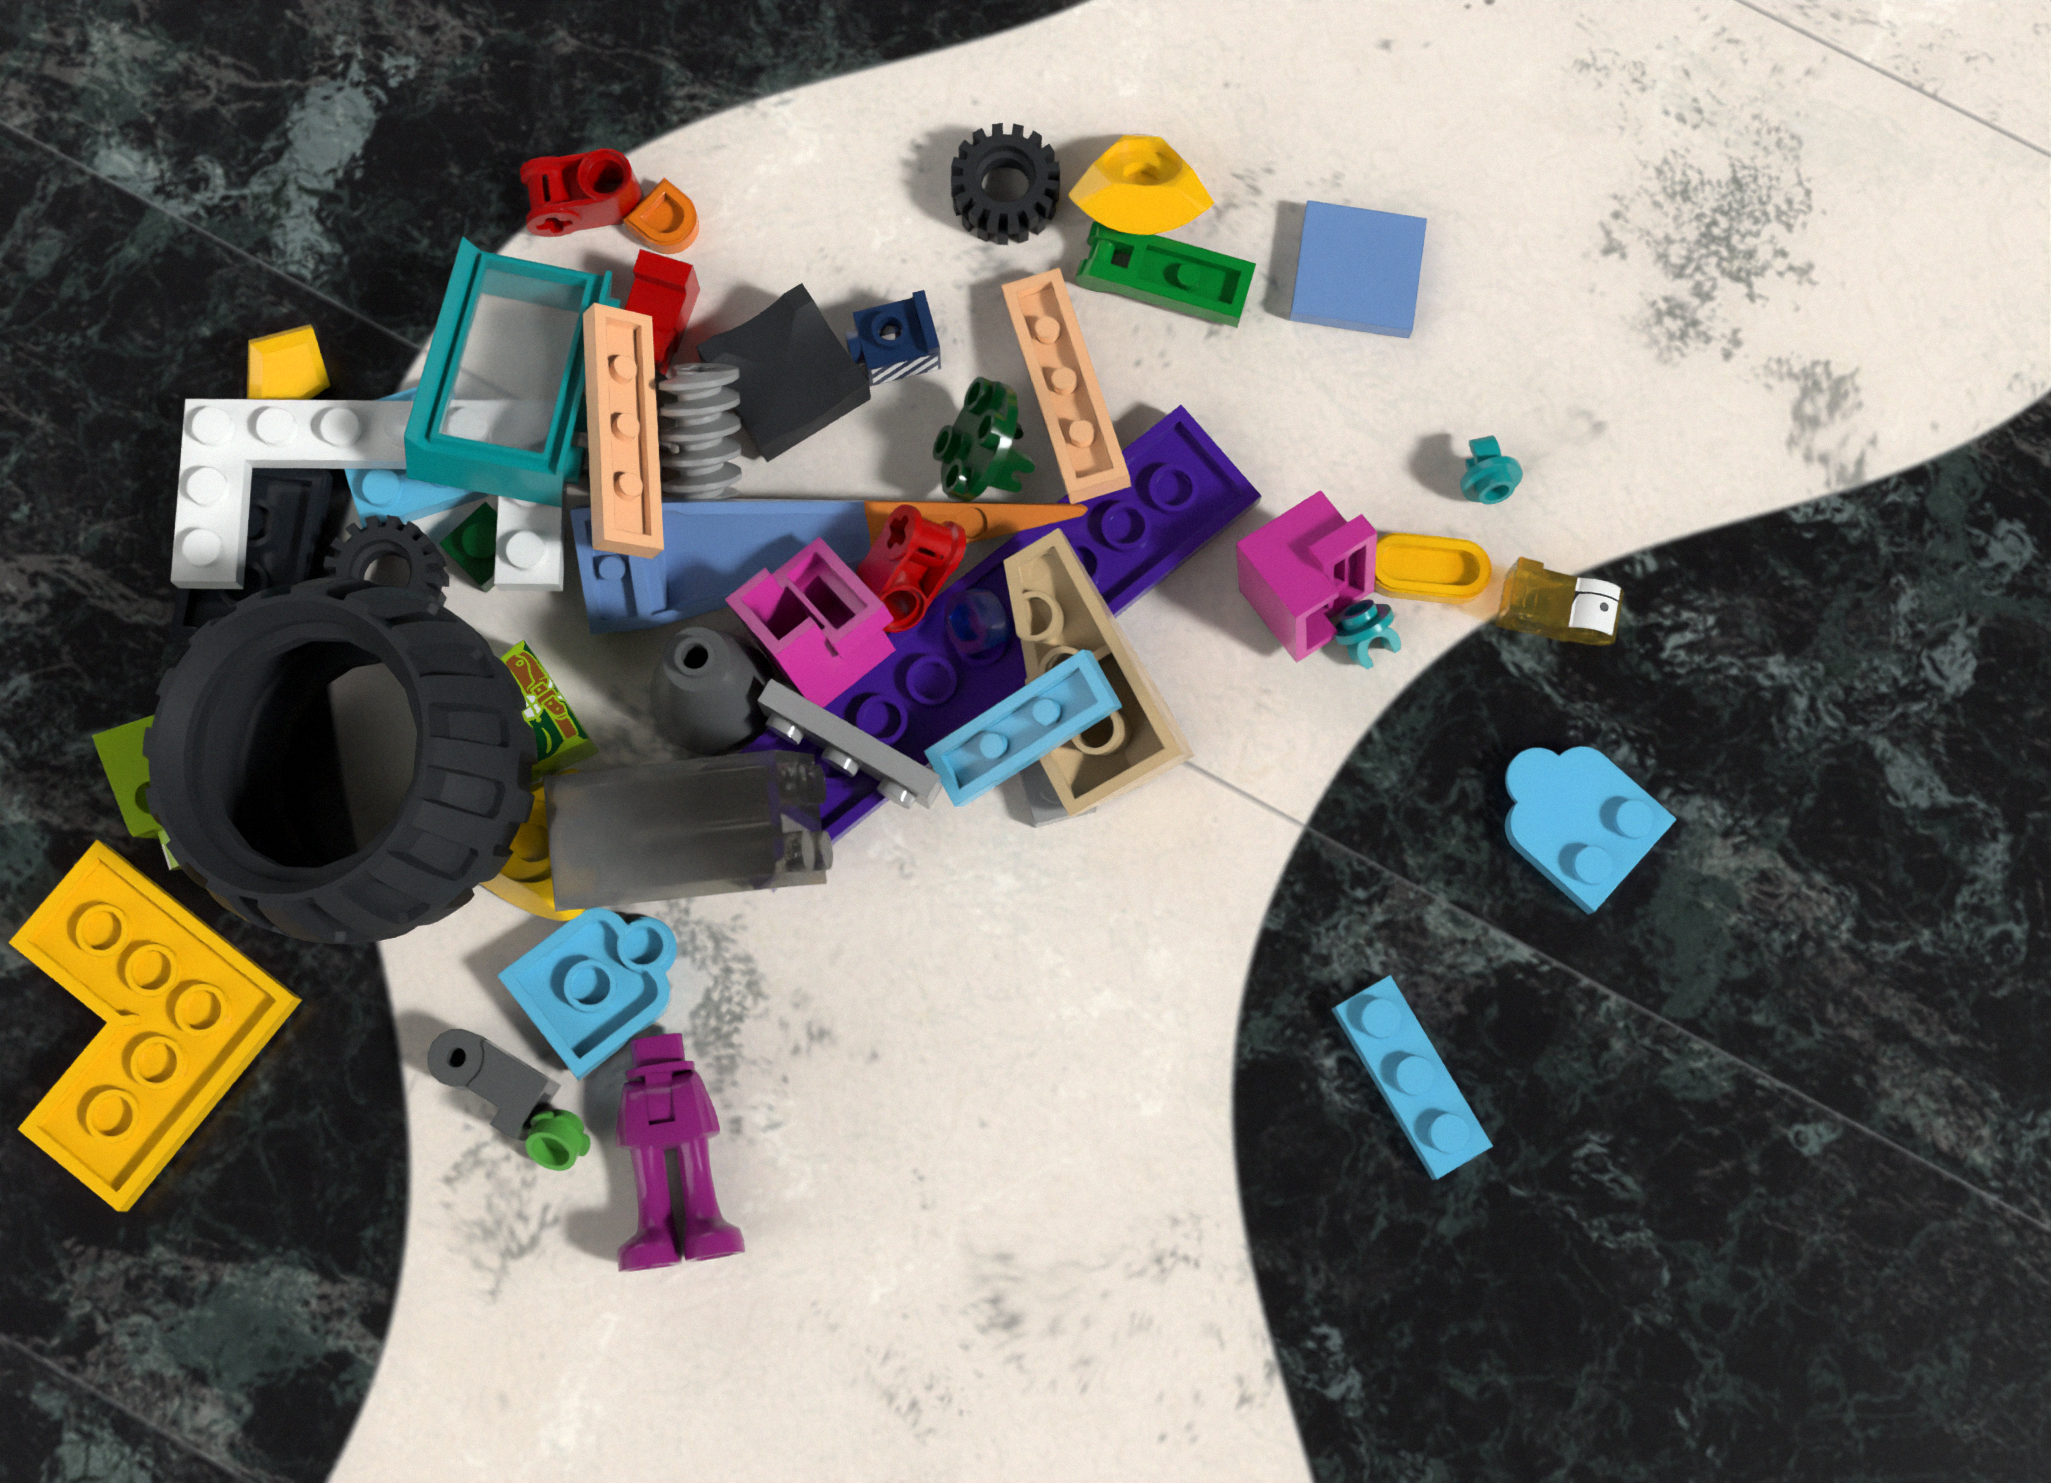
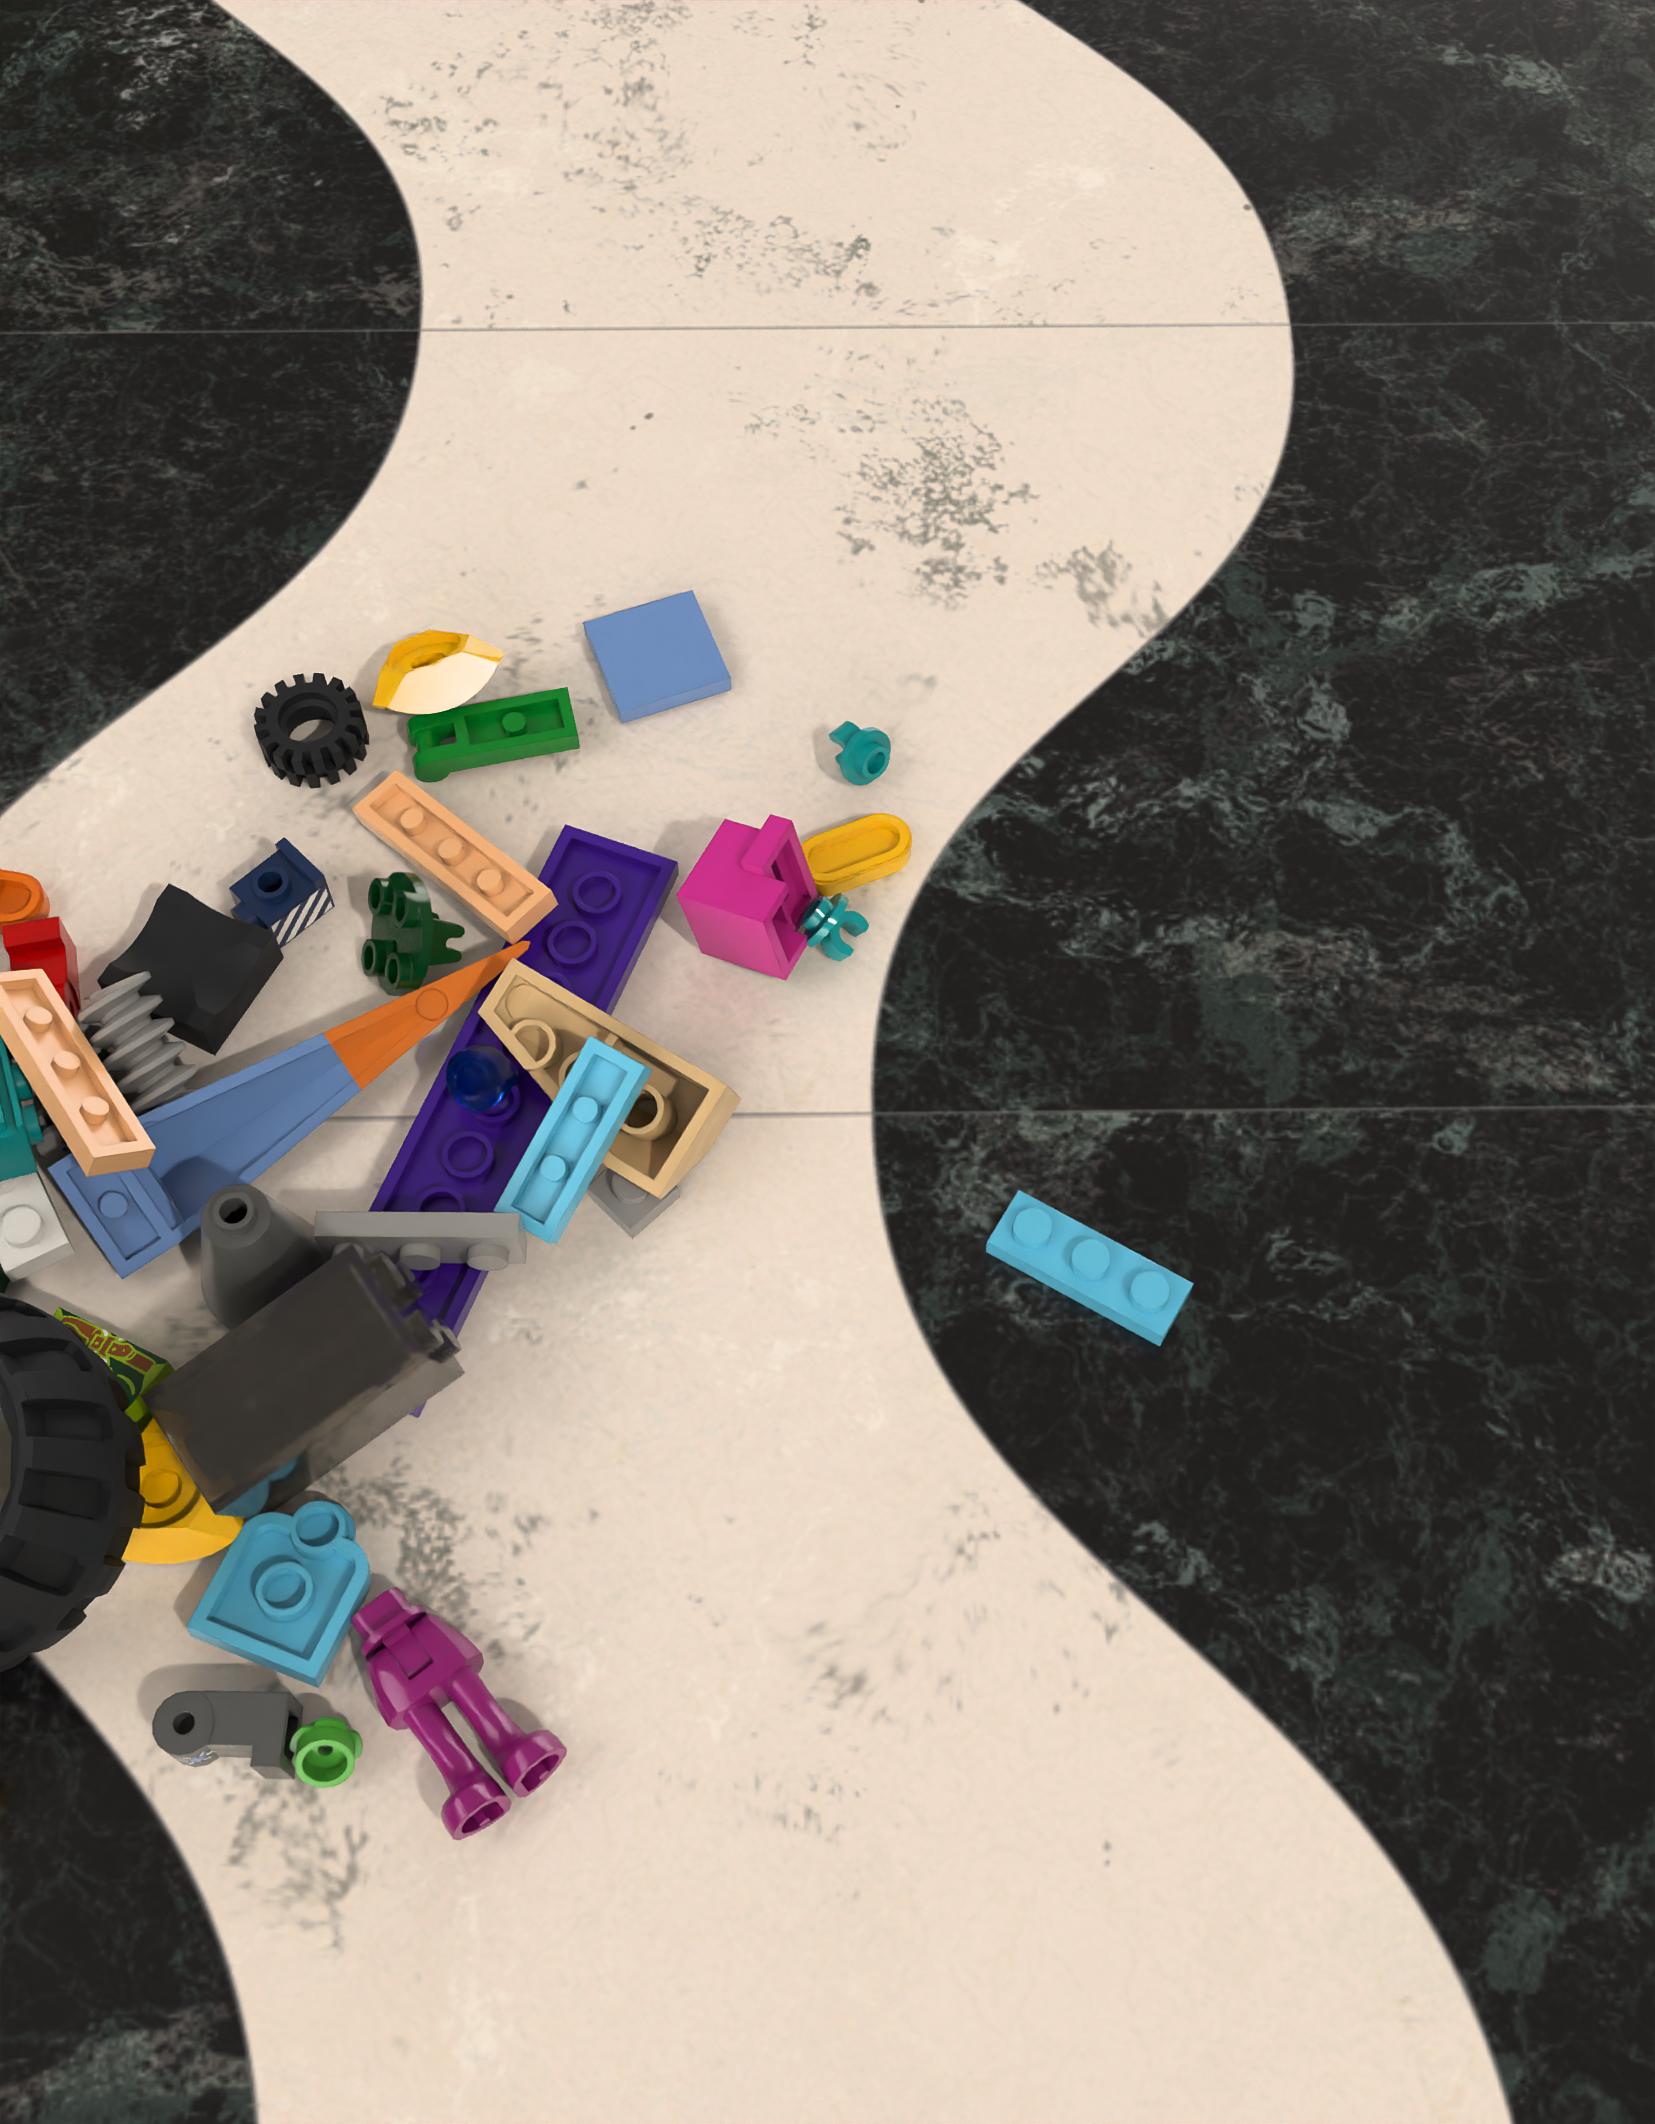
camera: 25 degrees left, 15 degrees down
(815, 622) = (331, 1150): dark pink plate -> none
(907, 565) = (393, 1060): red piece -> none
(1559, 604) = (980, 825): clear yellow leg -> none
(1580, 820) = (1102, 985): medium azure plate -> none

